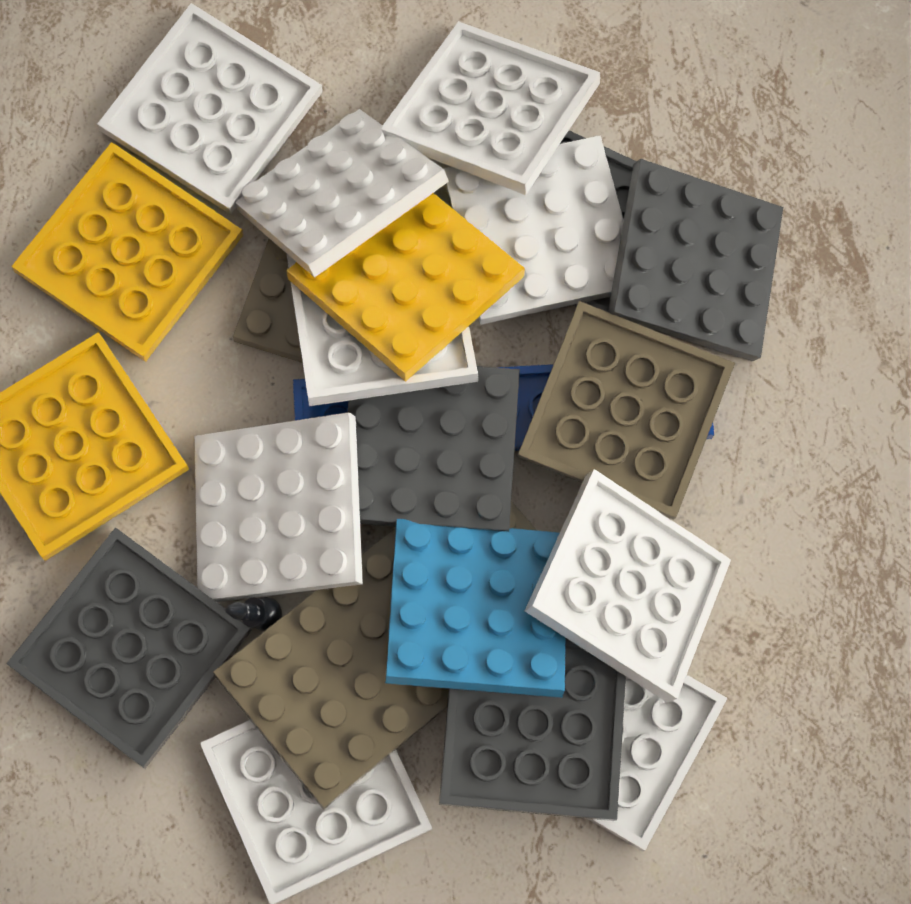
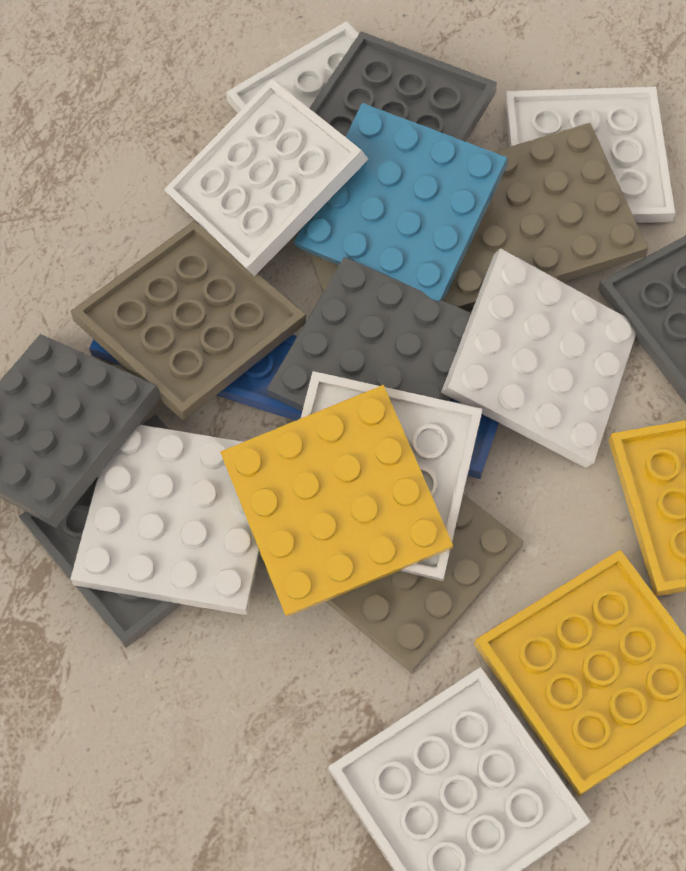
camera: 150 degrees left, 10 degrees down
(256, 612) = (596, 285): black bar -> none
(339, 191) = (364, 618): white plate -> none
(492, 107) = (164, 653): white plate -> none

